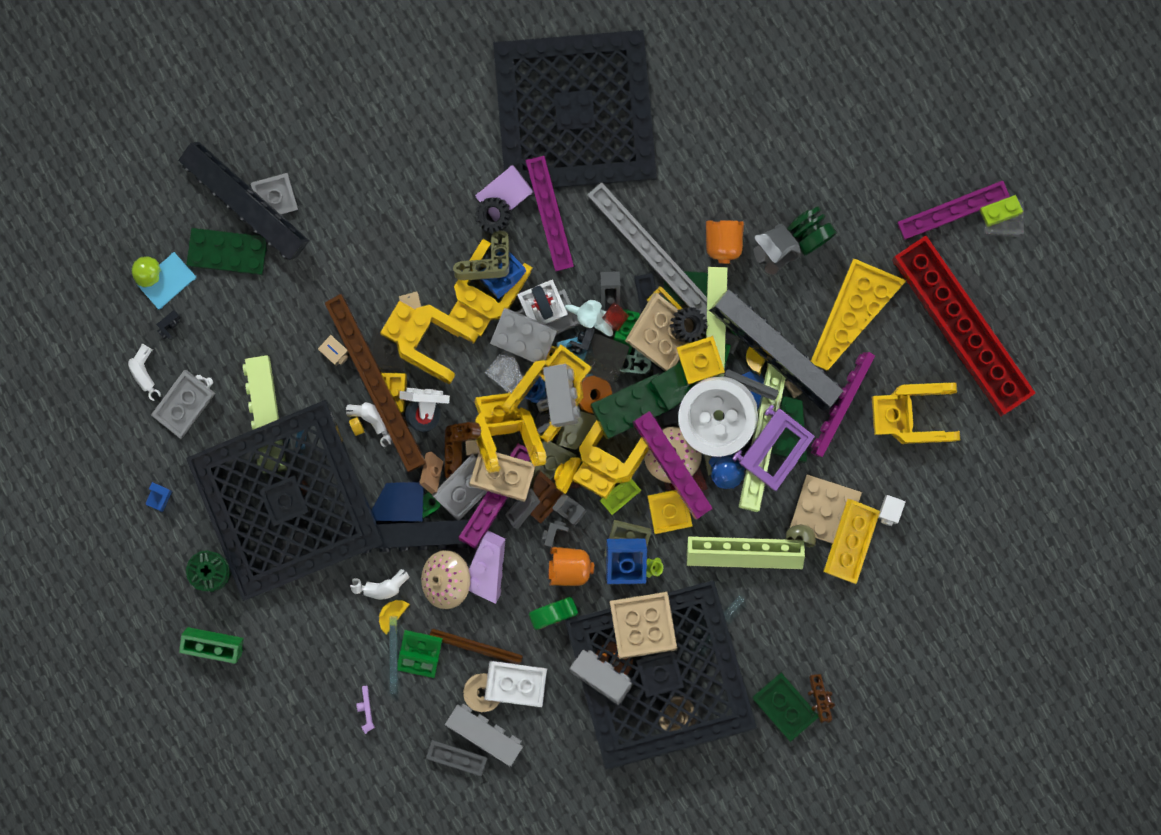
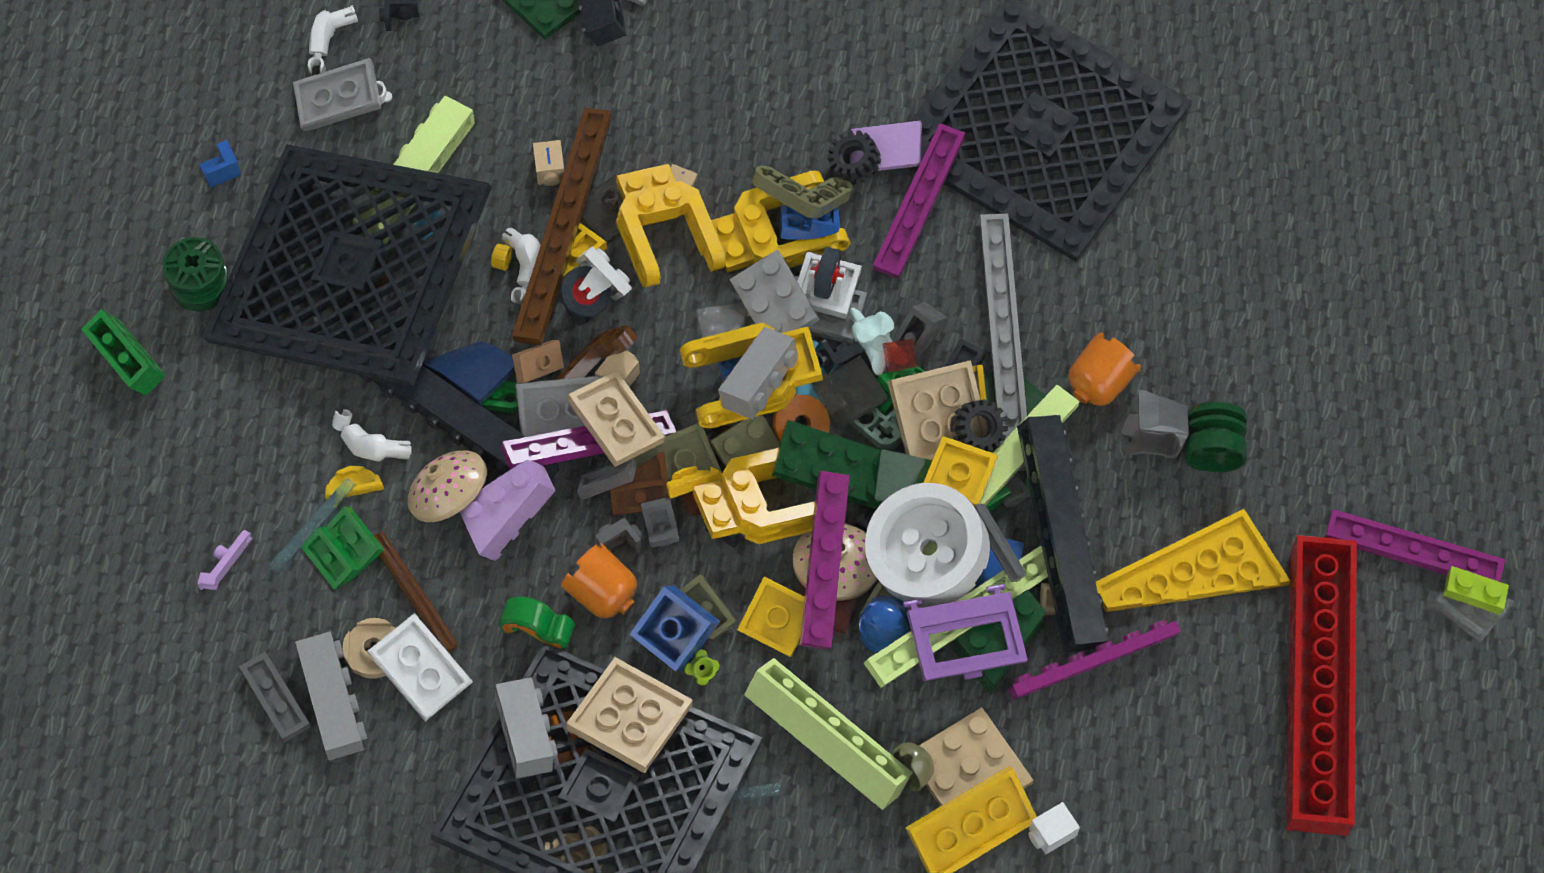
camera: 40 degrees right, 20 degrees down
(496, 421) = (660, 360): yellow plate -> none
(620, 496) = (734, 558): lime plate -> none
(754, 361) = (1026, 532): yellow tile -> none
(894, 414) = (1149, 719): yellow plate -> none

